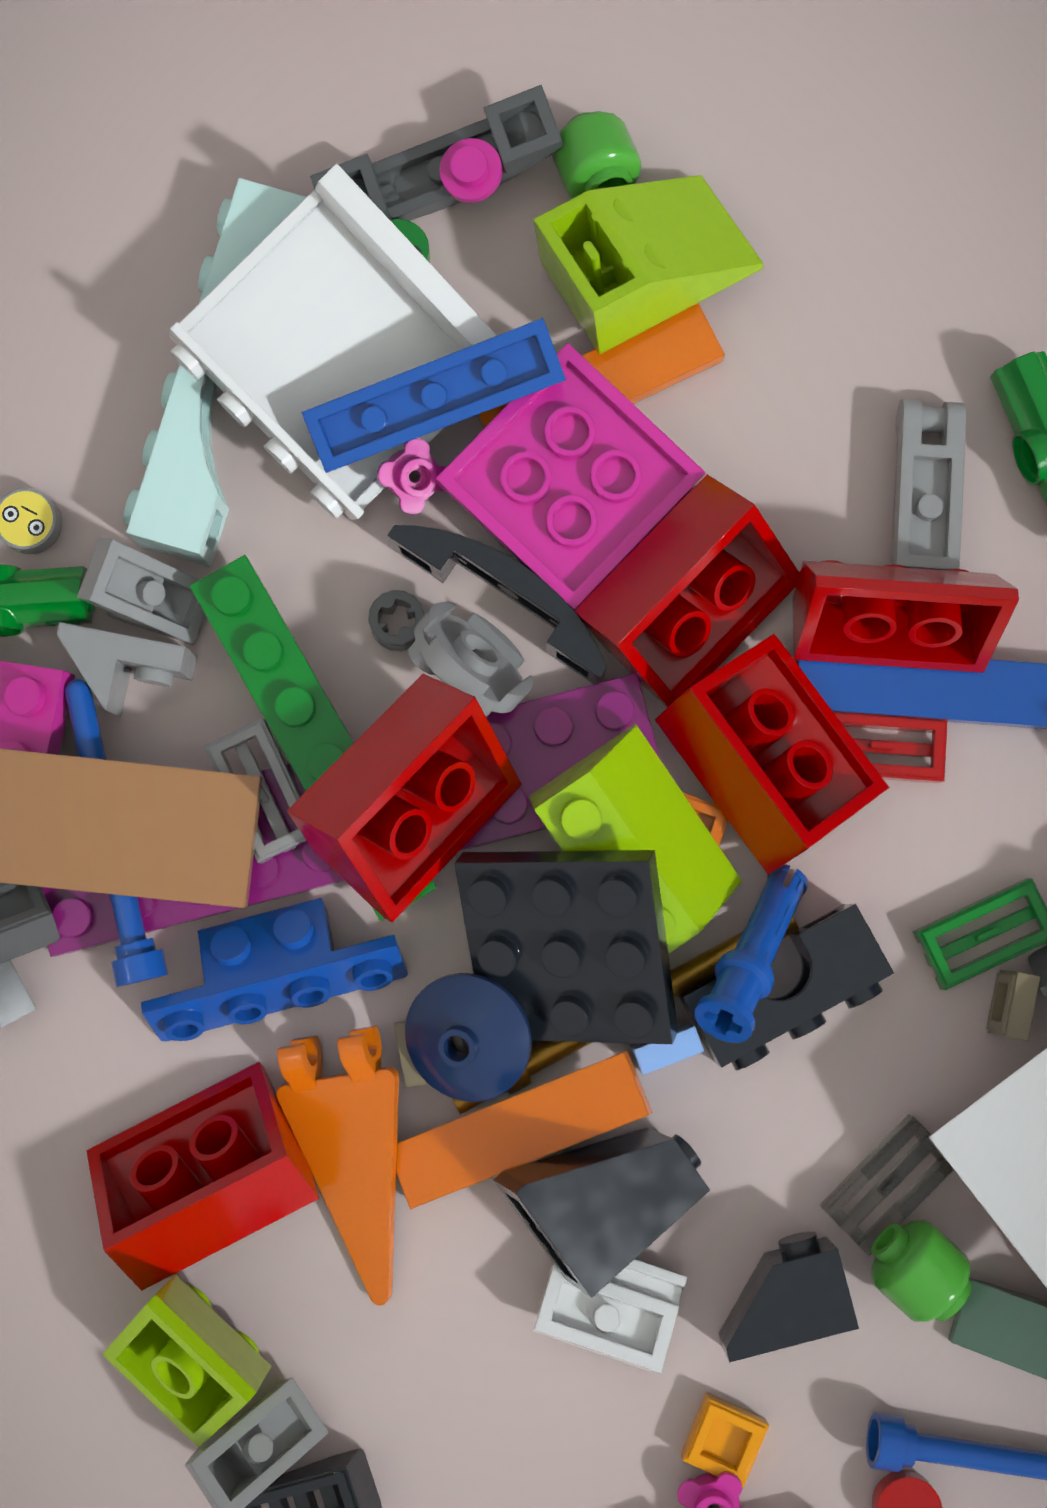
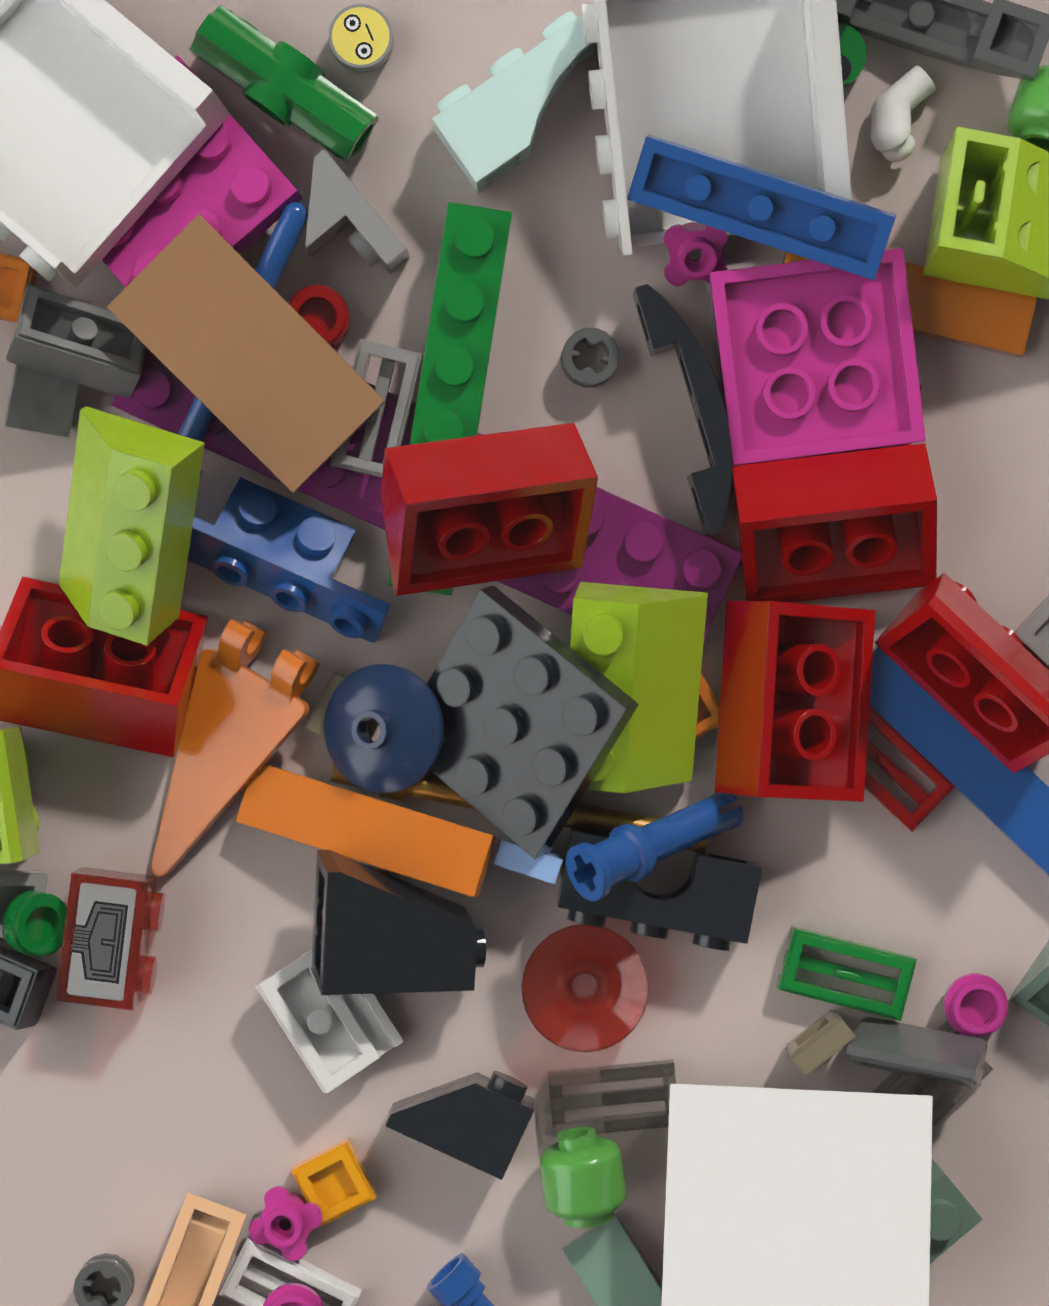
camera: 35 degrees right, 5 degrees up
(135, 1039) = (129, 524): none -> lime slope
(142, 591) = (408, 175): light grey slope -> none
(162, 747) = (323, 311): none -> red tile
(315, 1427) = (35, 923): none -> green tile
(383, 1391) = (109, 938): none -> brick
(470, 658) = (622, 438): light grey plate -> none
(471, 170) = (943, 40): dark pink plate -> none
(478, 259) = (893, 114): none -> white arm
(827, 1121) = (590, 1020): none -> clear red dish

